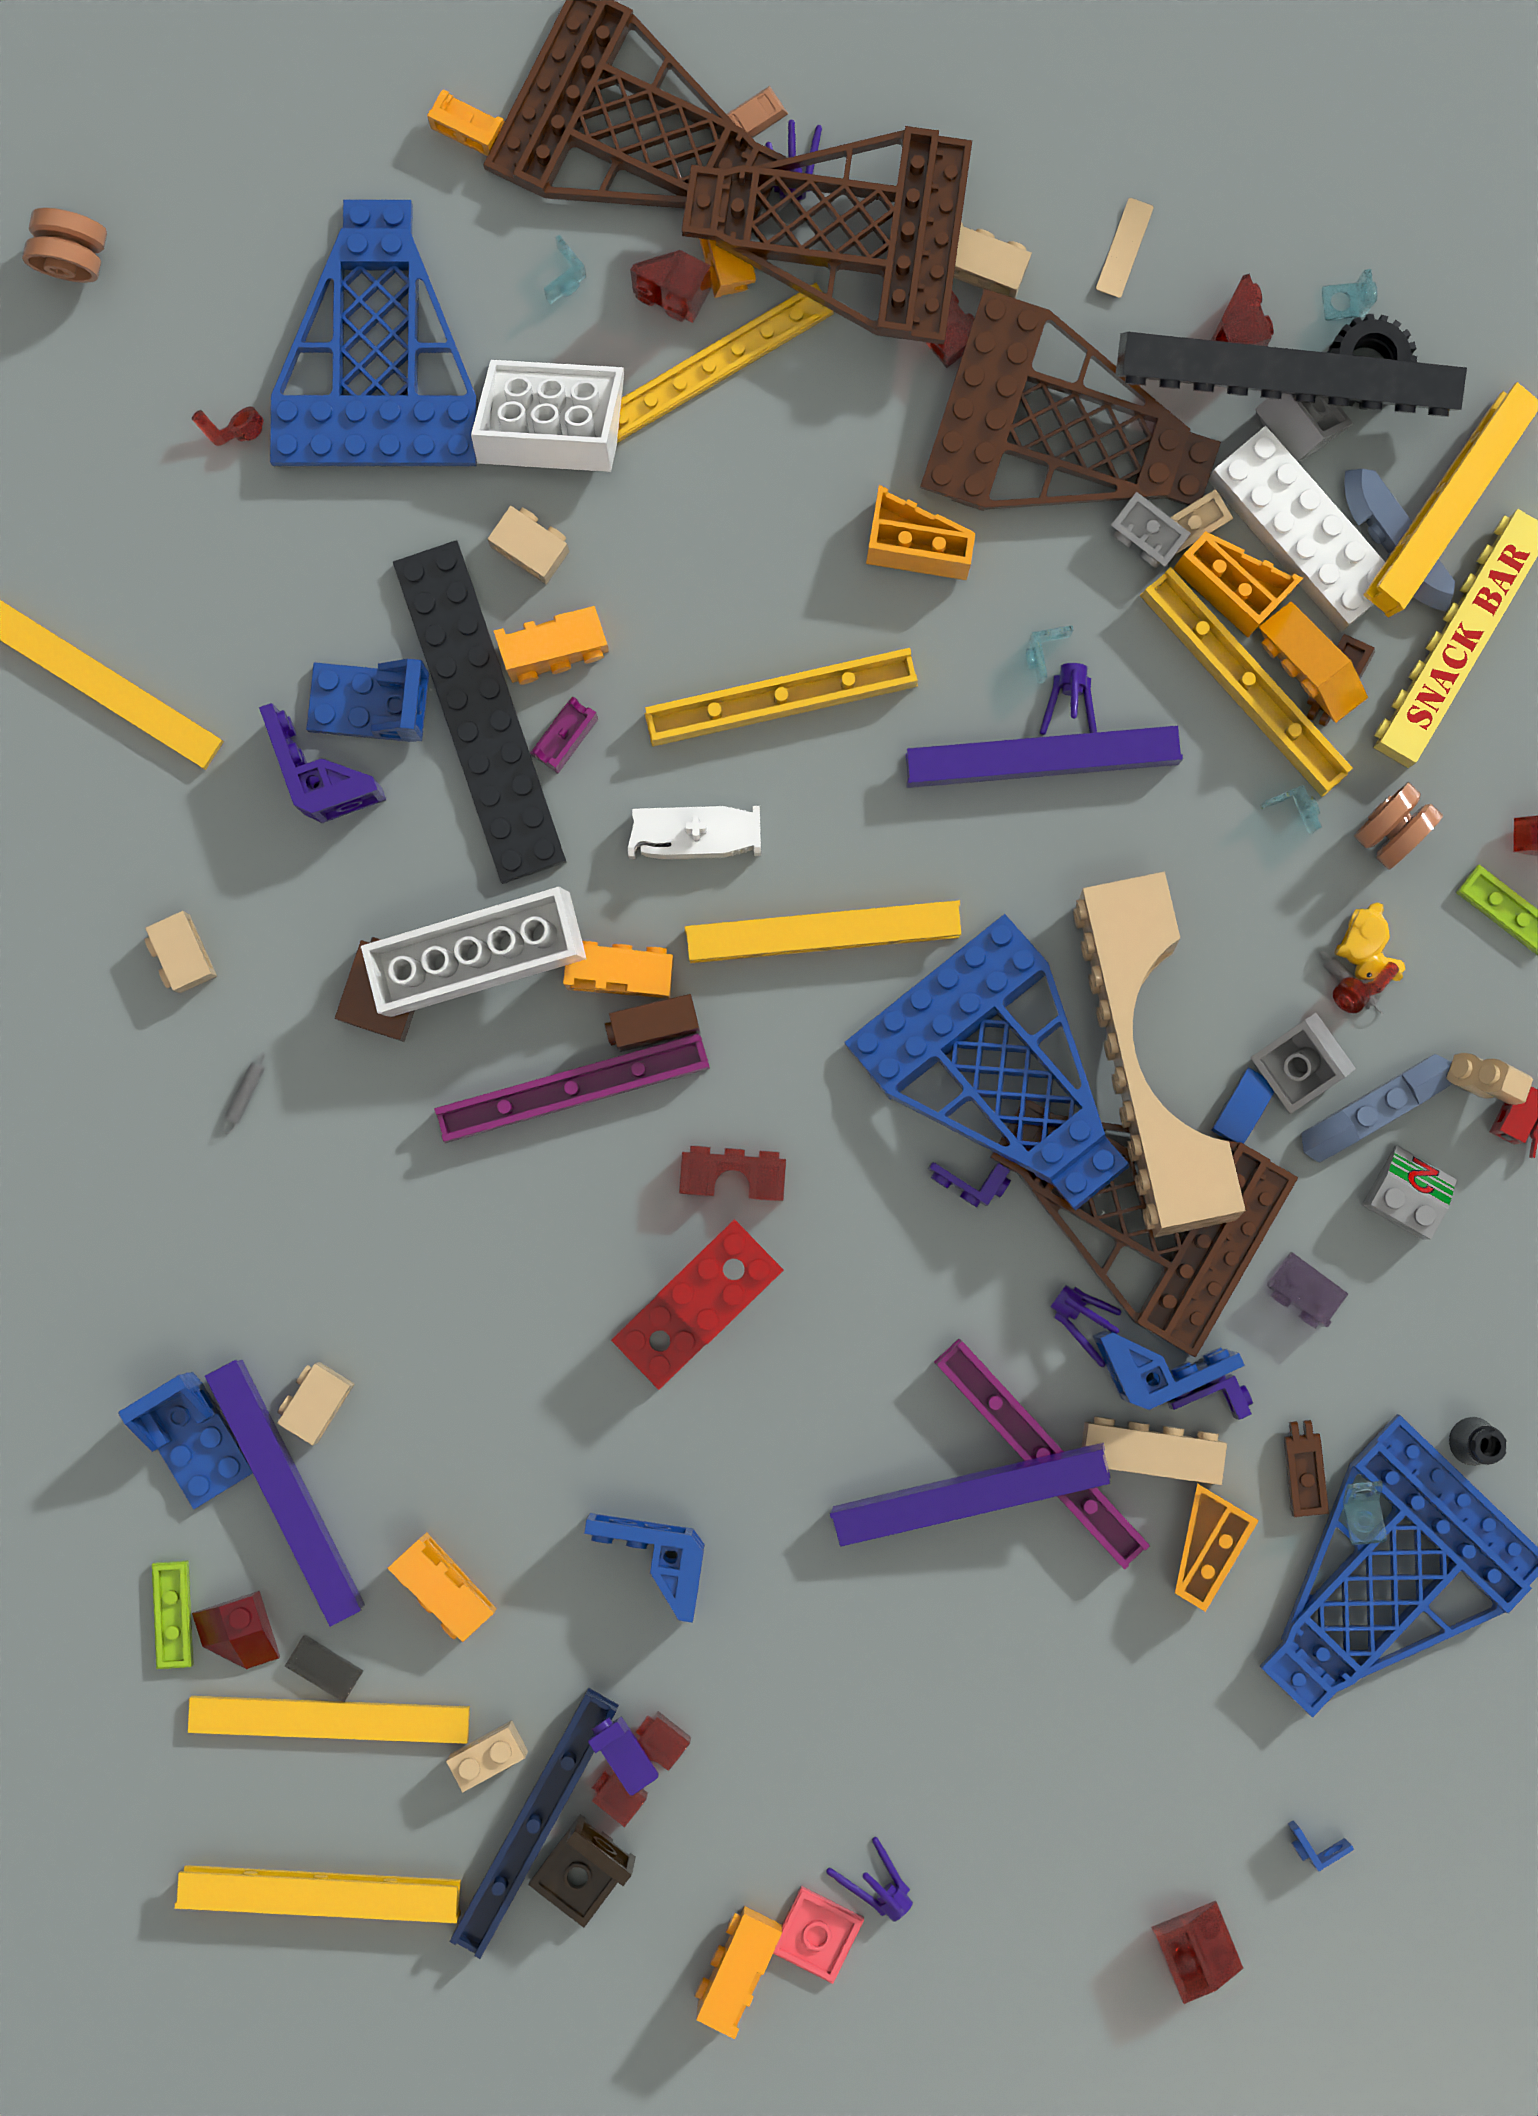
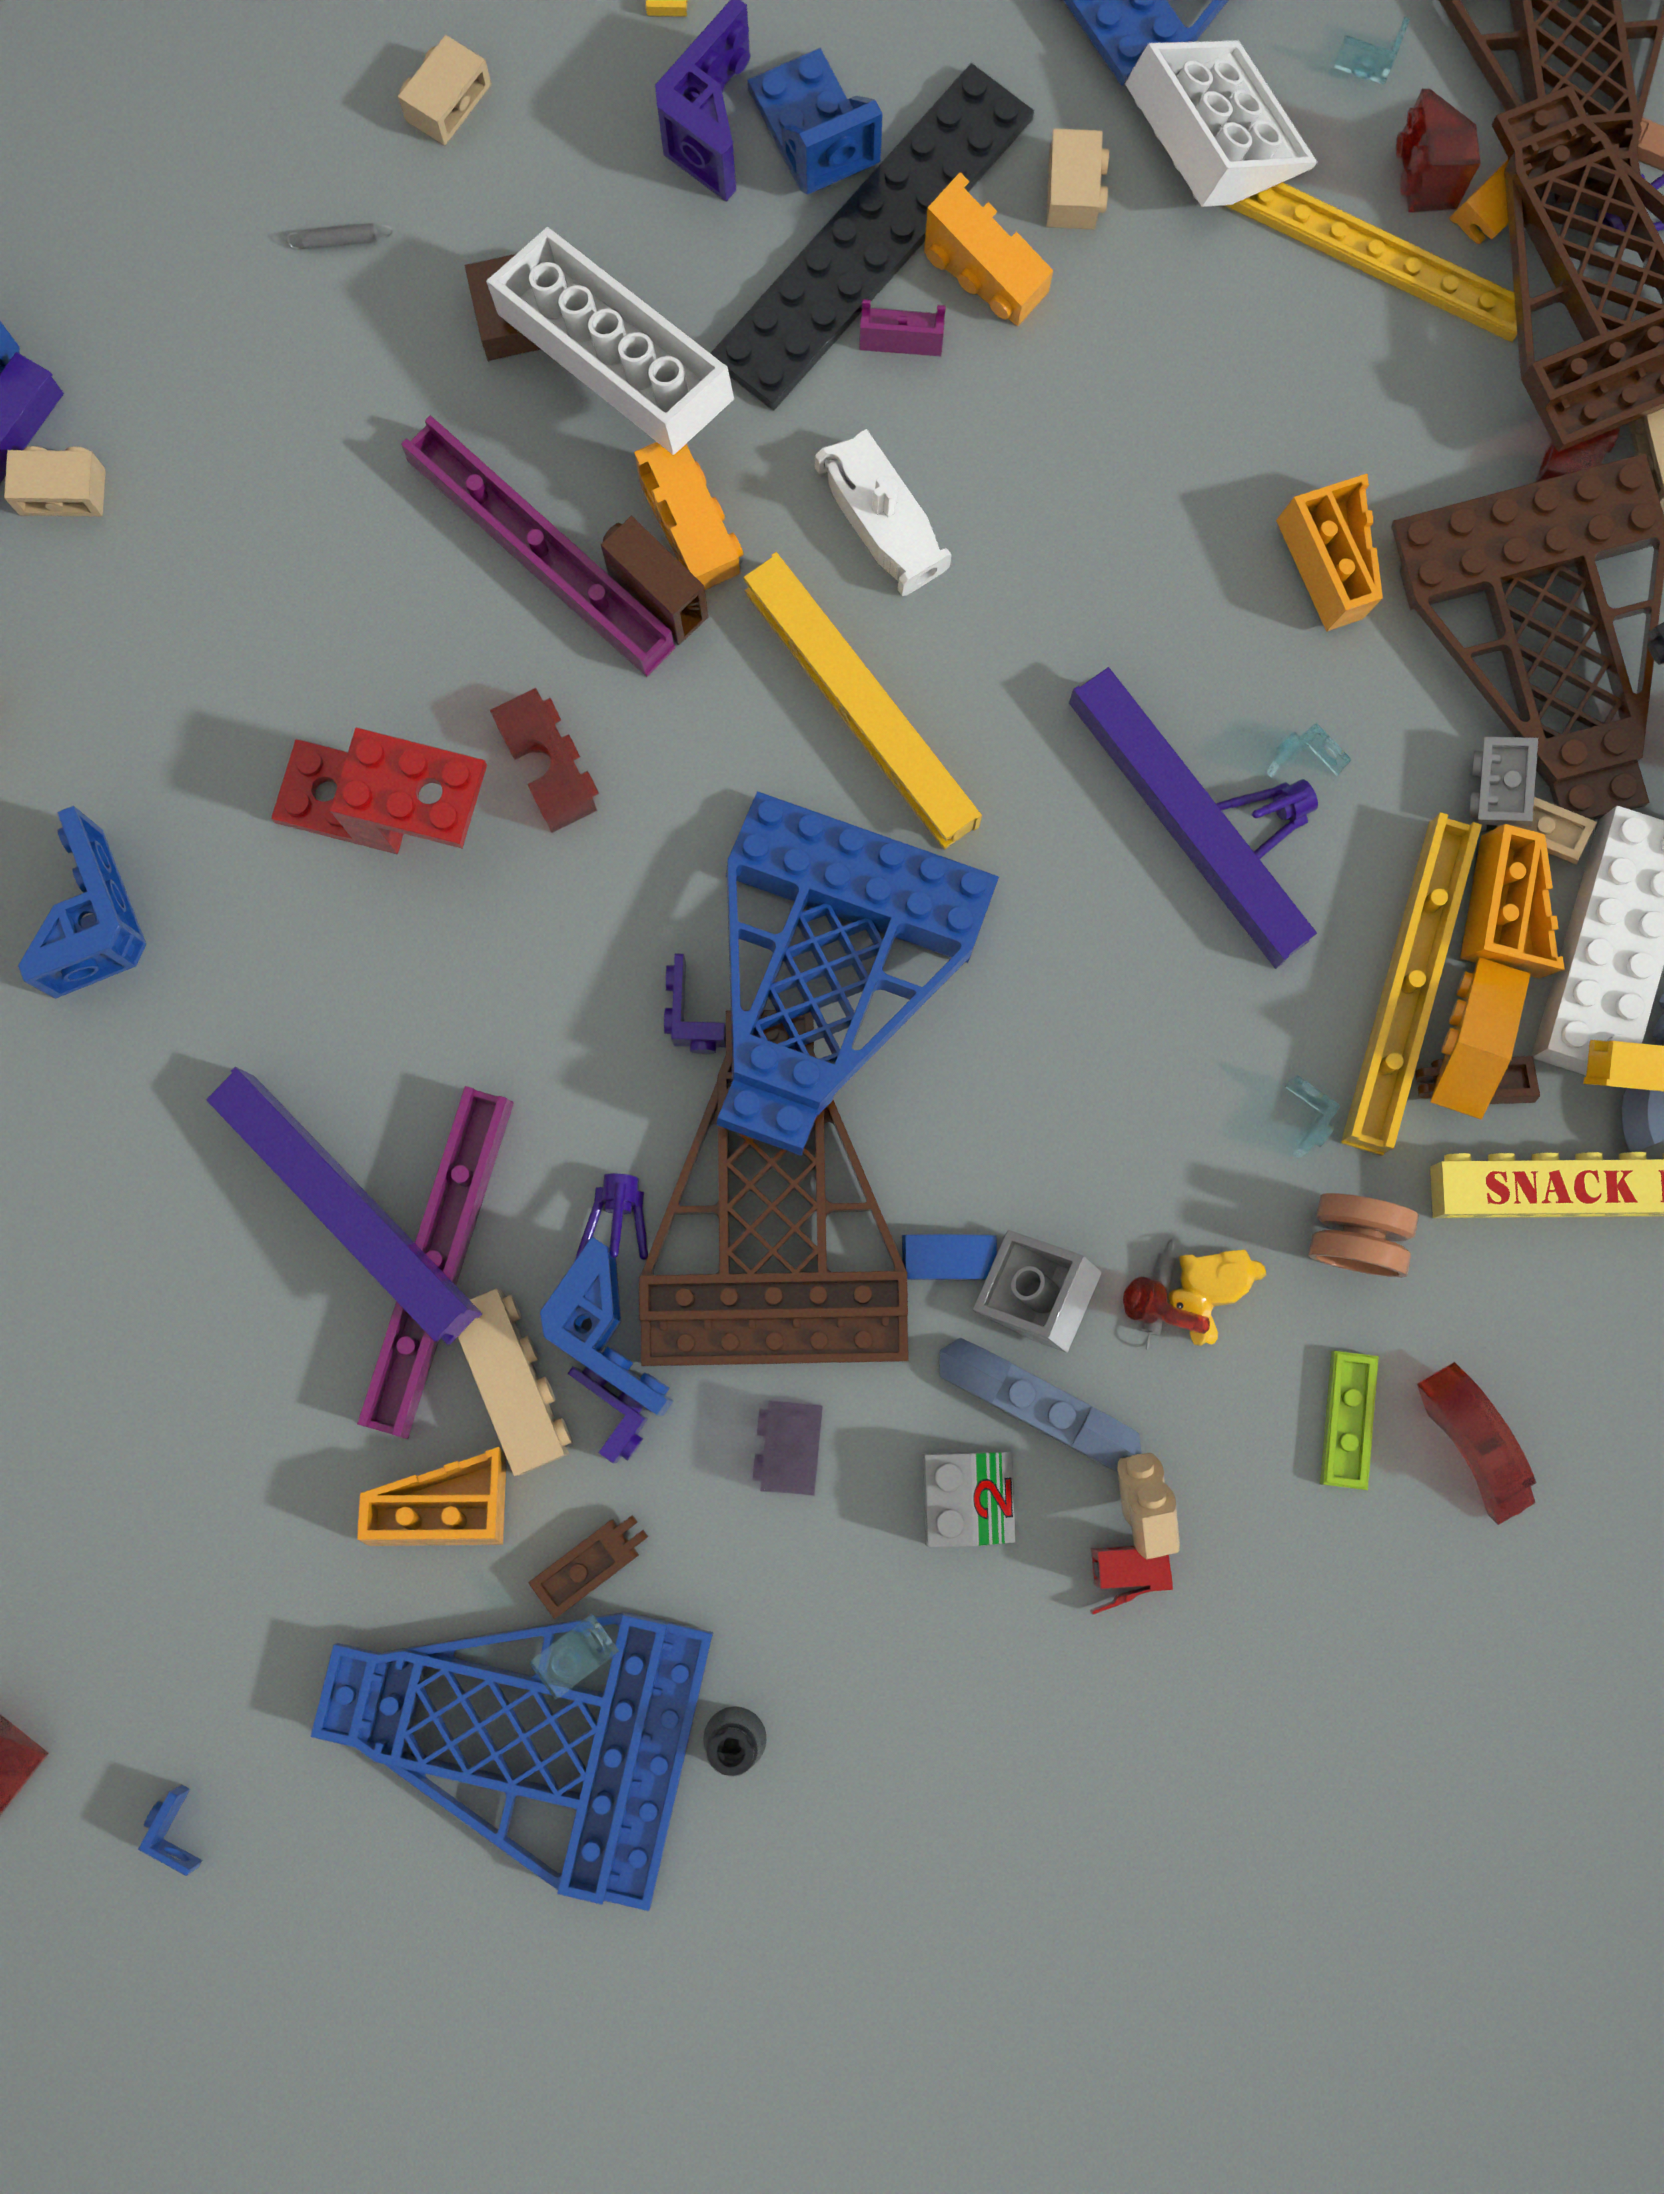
camera: 60 degrees right, 5 degrees down
(780, 697) = (1082, 516): yellow tile -> none
(1181, 1172) = (1044, 1019): tan arch -> none

